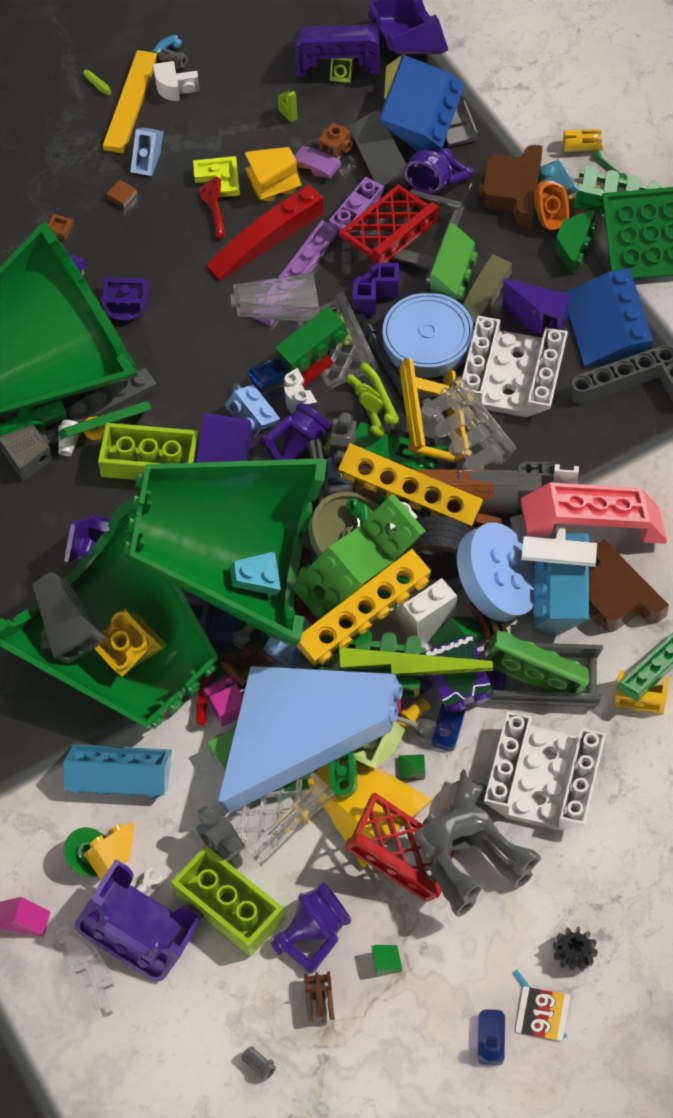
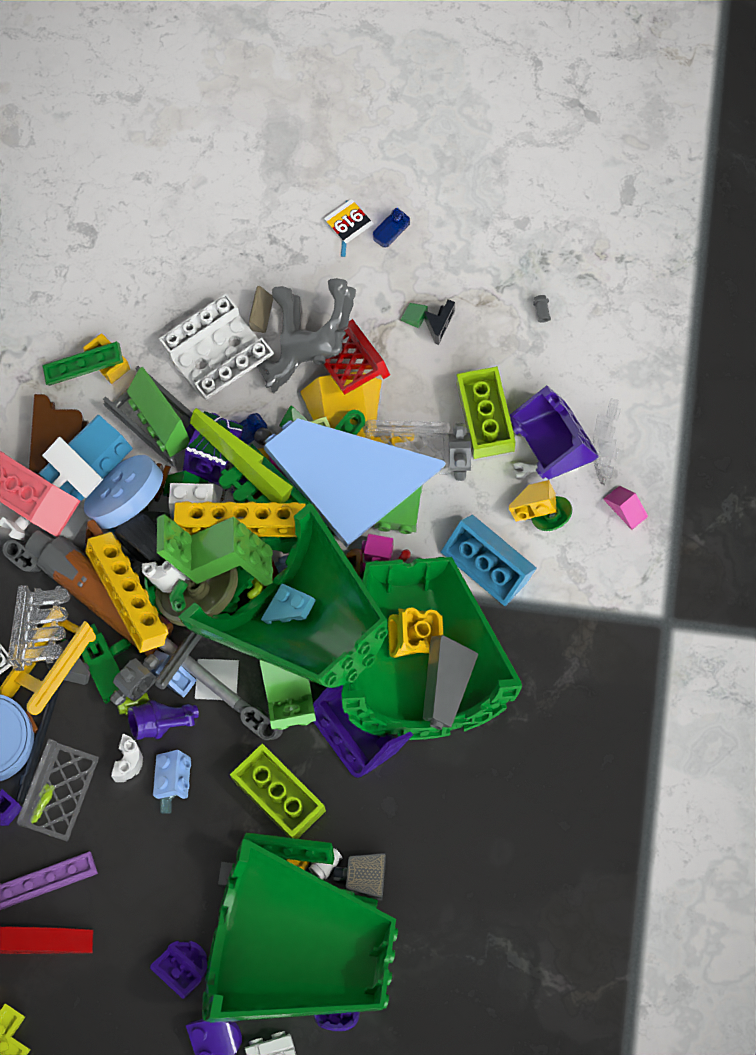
camera: 140 degrees left, 10 degrees up
(209, 193) = (34, 1012): red piece -> none
(224, 439) = (224, 747): dark purple slope -> none
(268, 373) = (133, 797): clear blue piece -> none
(278, 298) = (64, 854): clear slope -> none
(312, 340) = (77, 797): green brick -> none
(316, 369) = (94, 777): red piece -> none
(317, 917) = (437, 361): dark purple piece -> none
(319, 993) = (474, 318): reddish brown arm -> none
(353, 960) = (438, 323): none -> black slope
(374, 400) = (80, 703): lime piece -> none
(538, 839) = (260, 310): none -> dark tan slope
(579, 942) = (291, 239): black gear -> none

